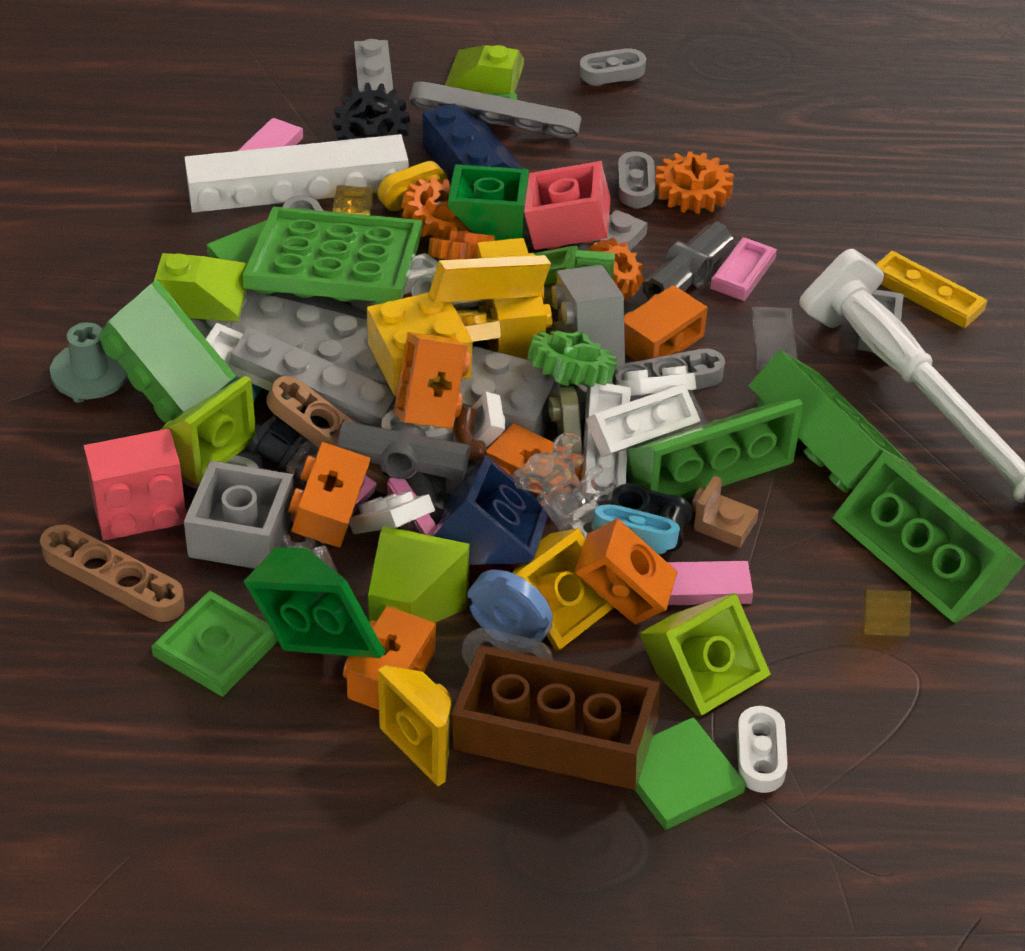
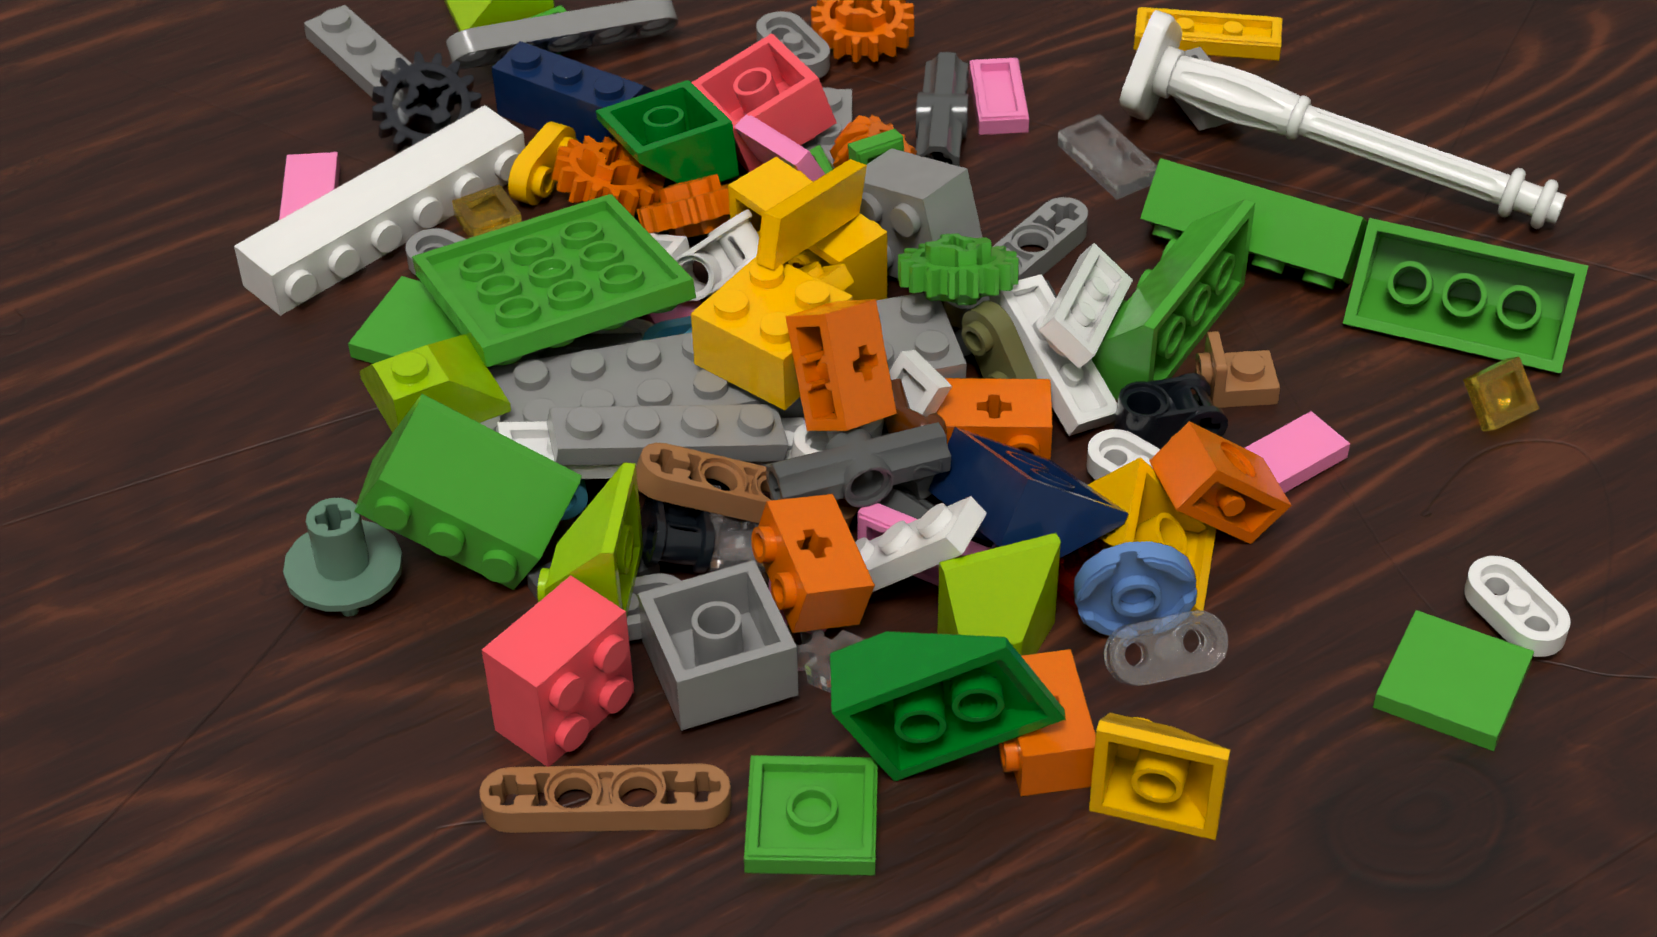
camera: 30 degrees left, 0 degrees up
(542, 238) = (769, 143): none -> bright pink tile
(550, 470) = (1043, 410): clear plate -> none
(556, 716) = (1302, 680): reddish brown brick -> none
(575, 499) = (1083, 432): clear plate -> none
(654, 530) = (1153, 430): medium azure plate -> none
(664, 325) = (995, 184): orange brick -> none
(670, 378) = (1058, 251): white plate -> none
(706, 653) = (1367, 532): lime slope -> none

